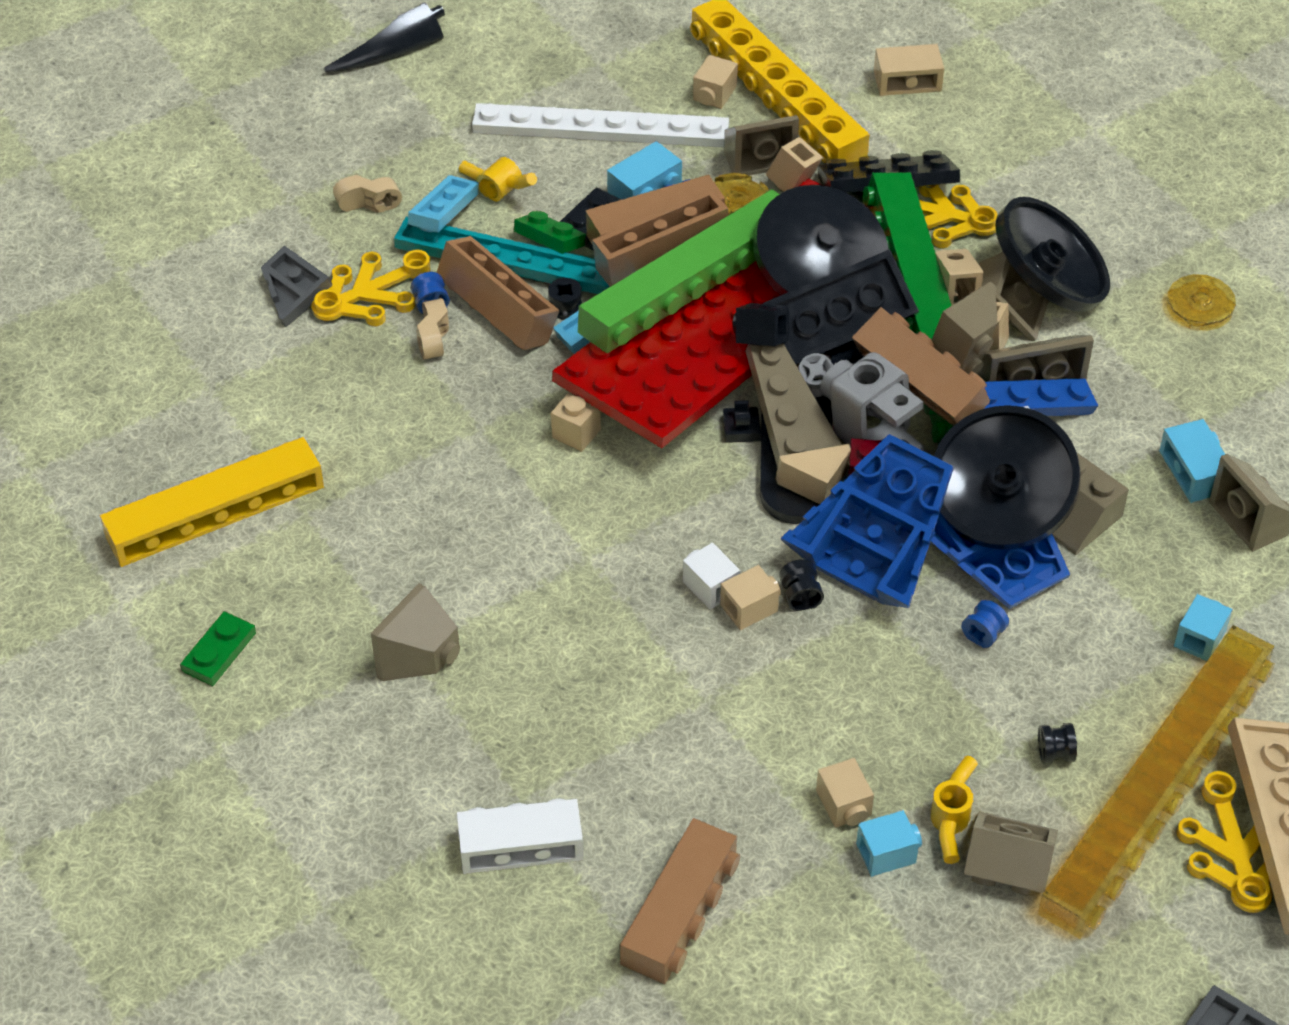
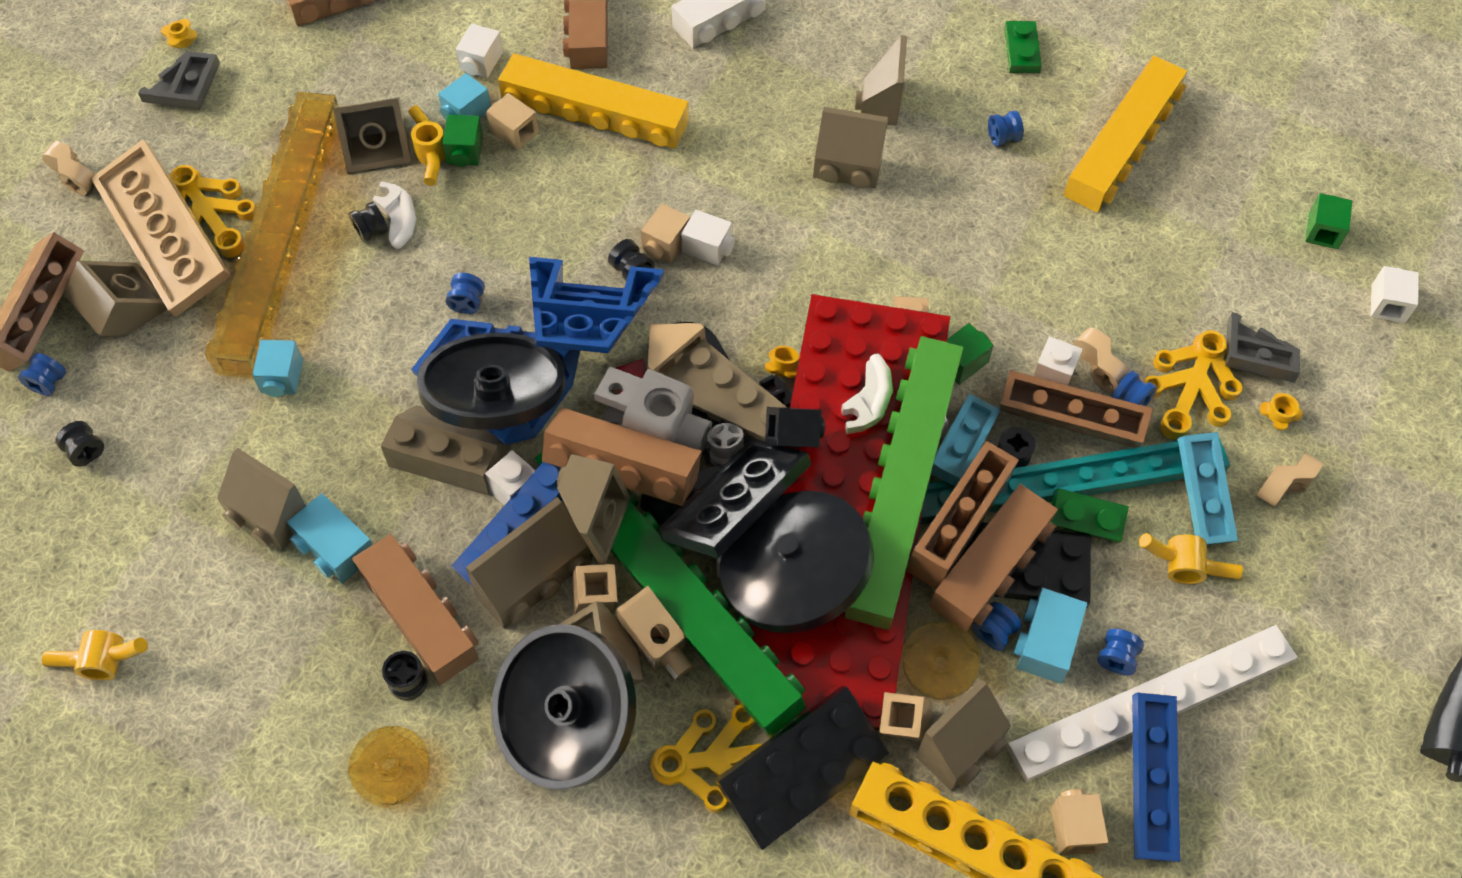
camera: 150 degrees right, 10 degrees up
(118, 347) = (1328, 221): none -> green brick
(133, 272) = (1394, 294): none -> white brick
(319, 241) = (1285, 403): none -> yellow plate
(326, 557) = (1005, 128): none -> blue wheel
(479, 333) = (1057, 361): none -> white brick
(508, 590) = (850, 147): none -> dark tan slope
(537, 378) = (975, 352): none -> green brick
(602, 150) = (1120, 651): none -> blue wheel
(642, 79) = (1155, 777): none -> blue plate
(681, 330) = (873, 399): none -> white piece
(710, 434) = (783, 361): none -> yellow plate
(741, 780) = (595, 100): none -> yellow brick
(838, 905) = (479, 50): none -> white brick
(911, 791) = (462, 140): none -> green brick
(1015, 755) = (400, 210): none -> white piece
(1140, 381) = (416, 609): none -> medium nougat brick
(1168, 342) = (401, 667): none -> black wheel

